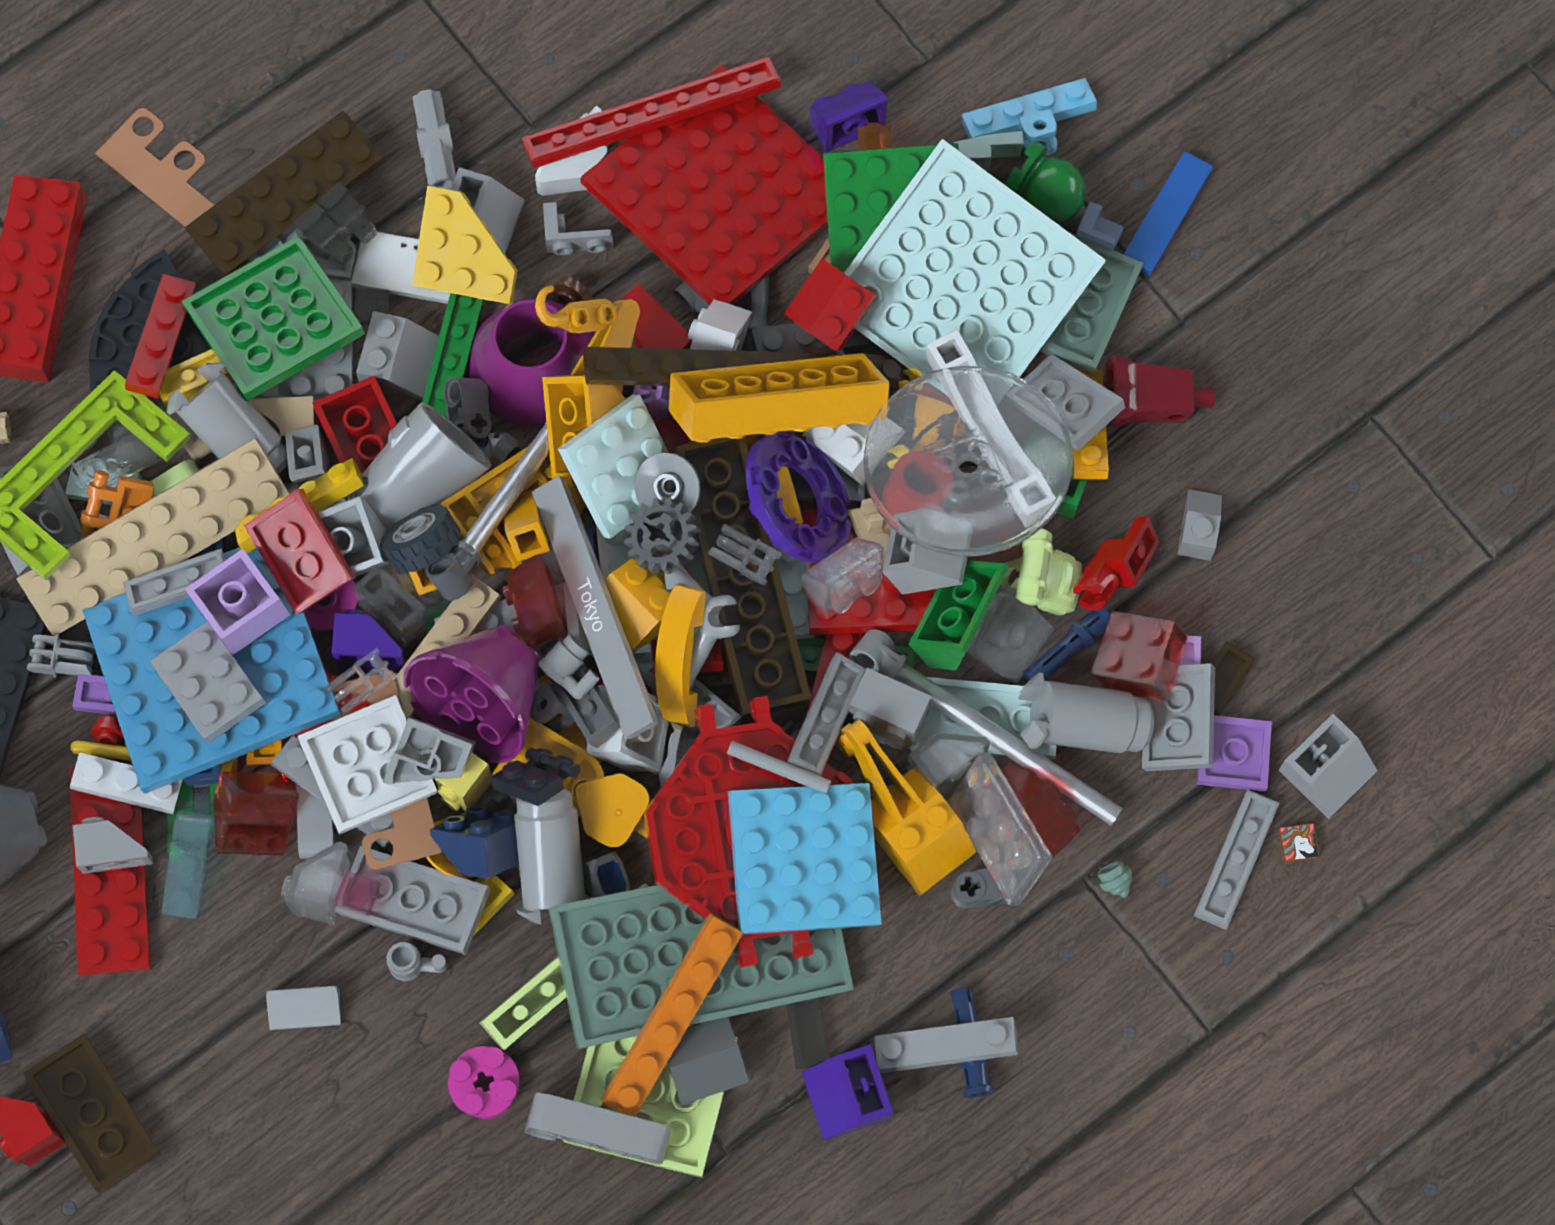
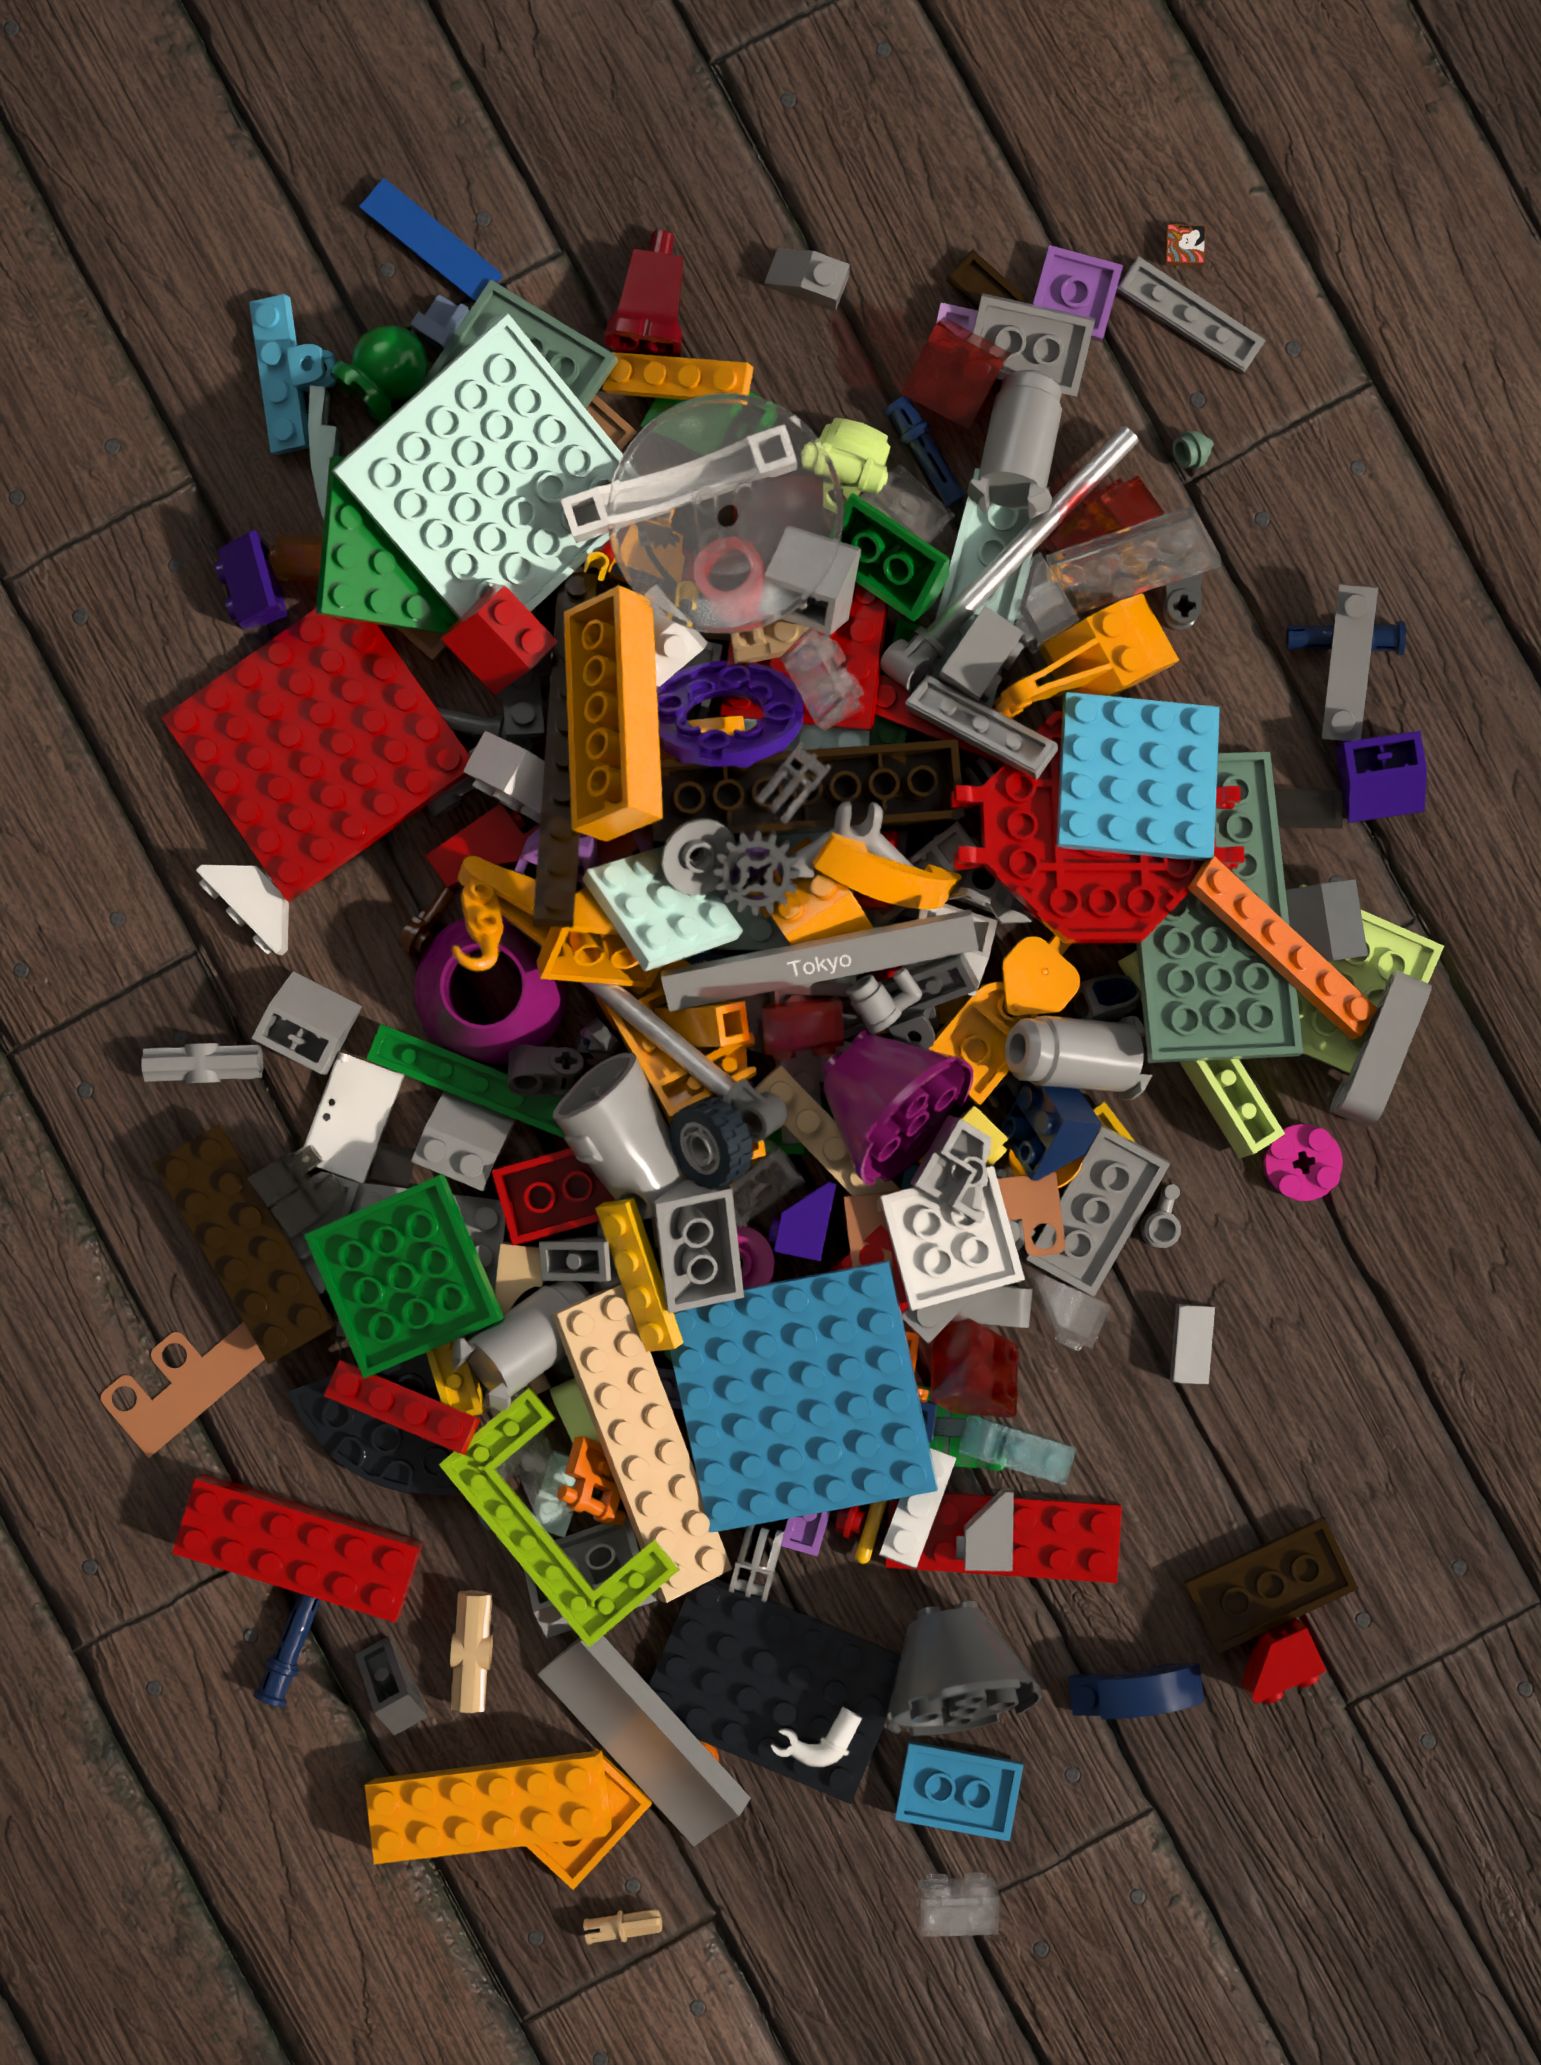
camera: 75 degrees left, 15 degrees up
(169, 584) = (703, 1422): light grey tile -> none
(207, 682) = (830, 1402): light grey plate -> none
(237, 601) = (748, 1357): lavender brick -> none
(299, 551) = (700, 1280): tile -> none
(357, 893) = (1085, 1269): clear pink plate -> none
(380, 667) = (862, 1238): clear arm -> none
(460, 251) = (355, 1051): yellow plate -> none
(536, 779) = (1011, 1062): black plate -> none
(564, 243) = (332, 939): light grey bracket -> none
(651, 112) = (217, 806): red tile -> none
(779, 767) = (1040, 785): light grey bar -> none
(1079, 399) = (651, 385): light grey plate -> none
(1117, 564) = (846, 378): red plate -> none
(1329, 766) = (1108, 194): light grey slope -> none

